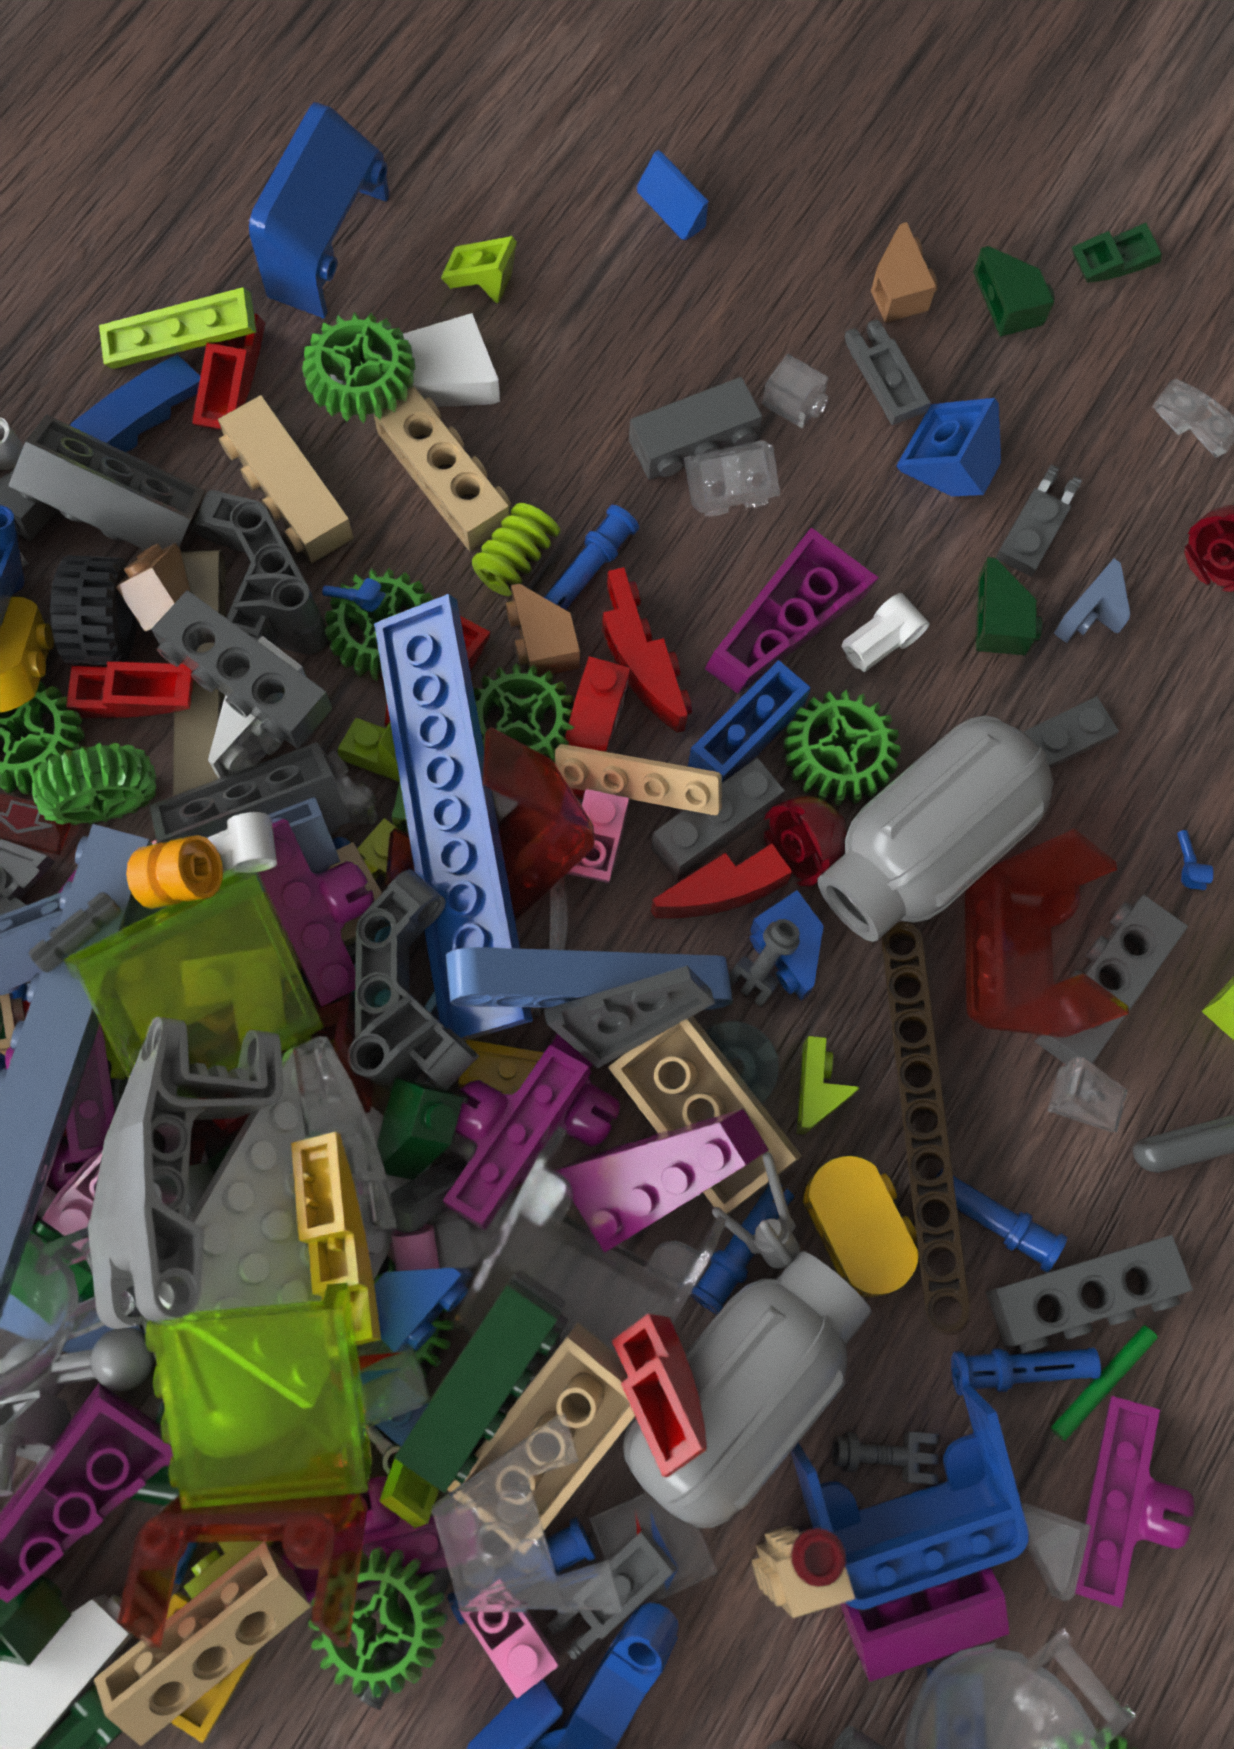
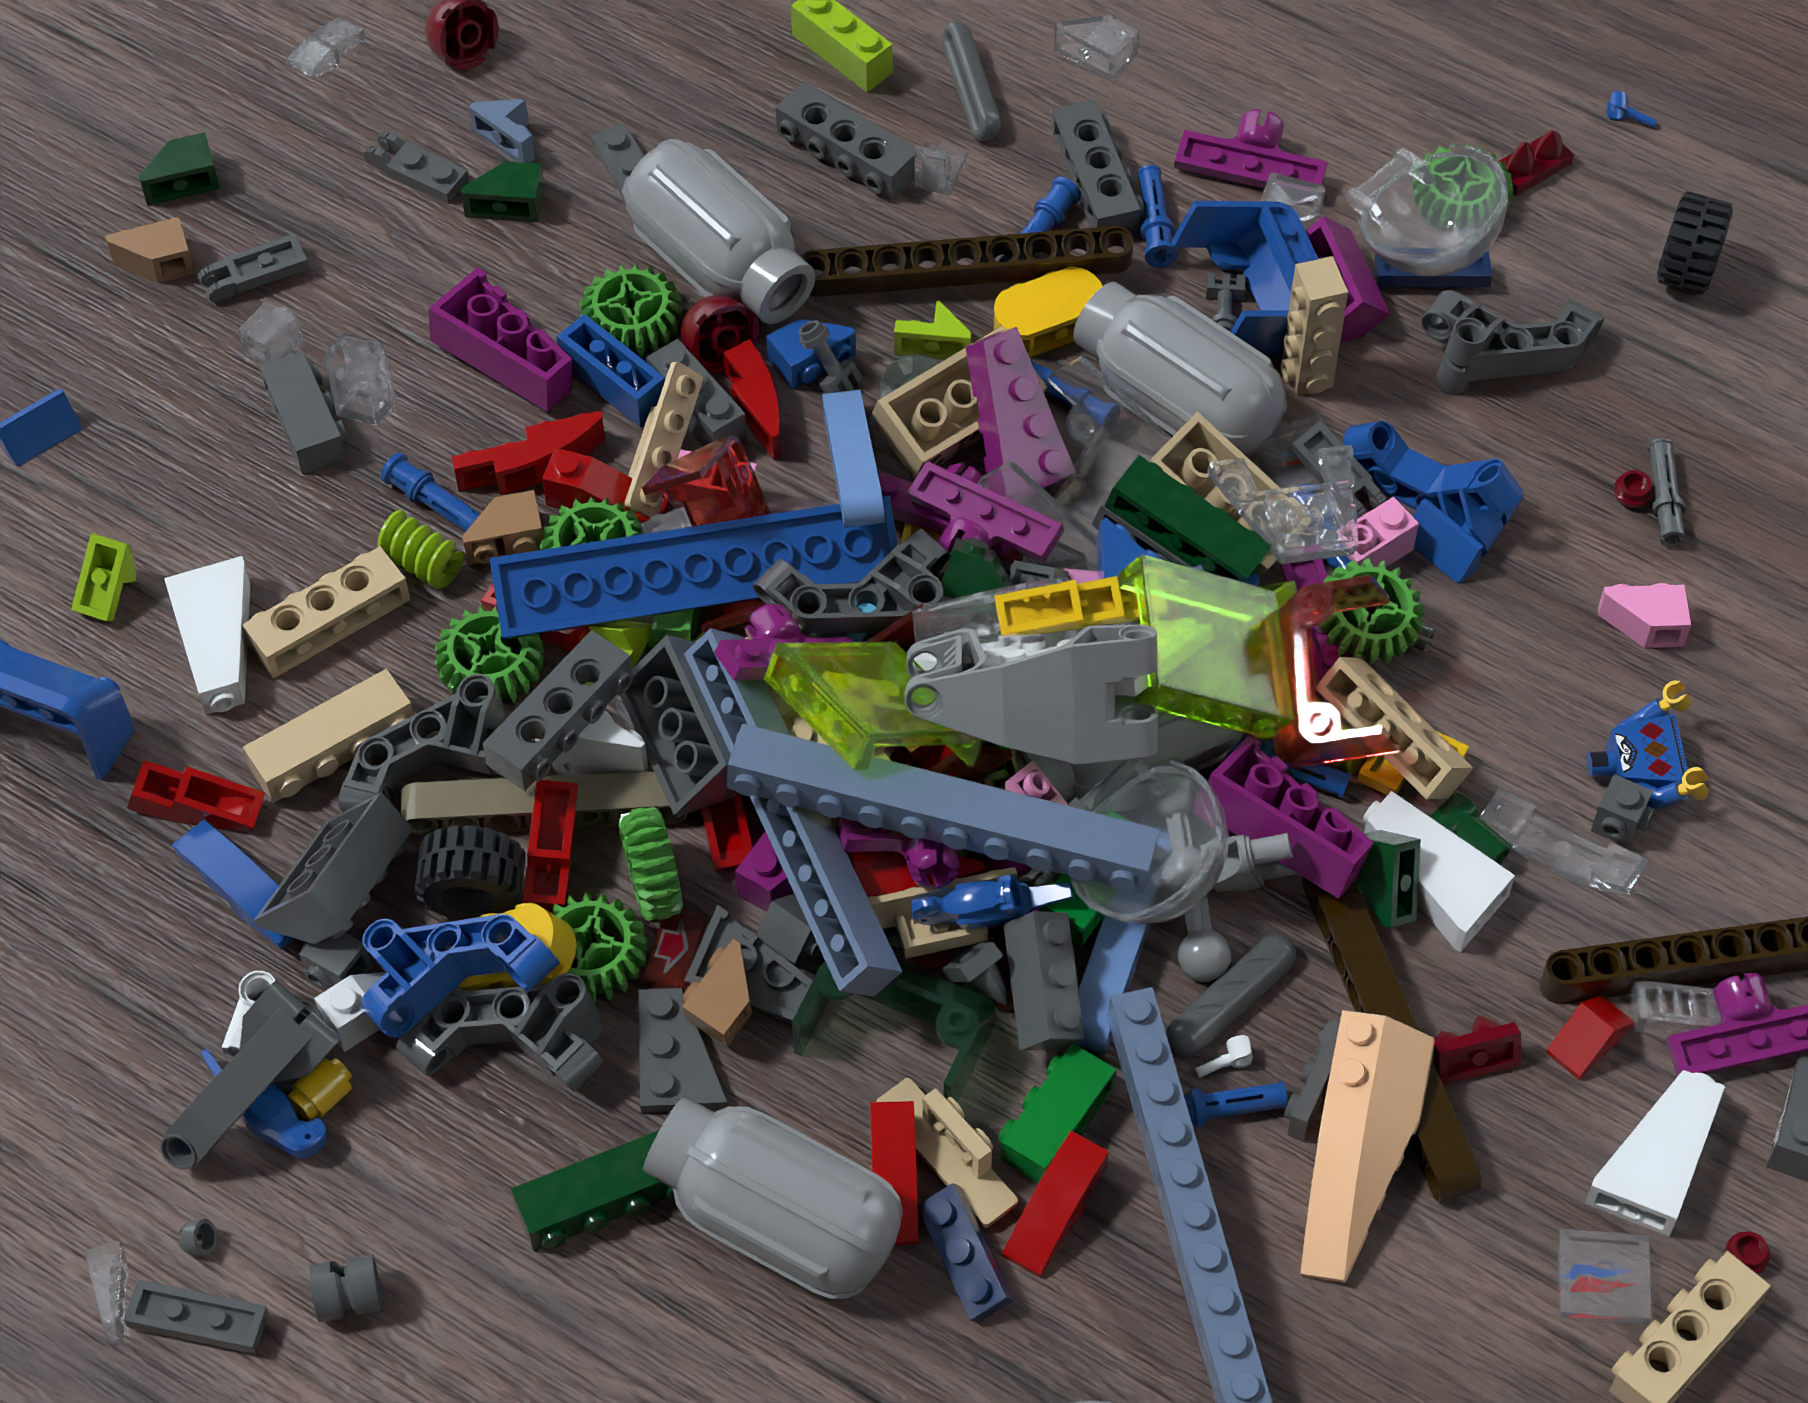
camera: 85 degrees left, 15 degrees down
(74, 932) = (828, 766): dark grey axle -> none
(154, 583) = (449, 808): medium nougat slope -> none
(174, 872) = (775, 694): light orange wheel -> none
(177, 328) = (151, 831): lime plate -> none
(246, 844) = (750, 656): white piece -> none
(345, 350) = (233, 667): bright green gear -> none
(367, 597) = (471, 649): blue hand -> none
(629, 1015) = (887, 435): dark grey wing -> none
(662, 1392) = (1192, 390): red slope -> none
(772, 1236) = (1060, 352): light grey plant -> none
(818, 1557) = (1306, 269): dark red plate -> none
(893, 626) = (518, 272): white piece -> none
(956, 447) = (340, 218): blue slope -> none
(1011, 942) = (824, 199): clear red windscreen -> none
(1100, 1387) = (1169, 174): green bar -> none
(1116, 256) = (145, 94): dark green slope -> none
(1193, 874) = (751, 86): blue hand -> none

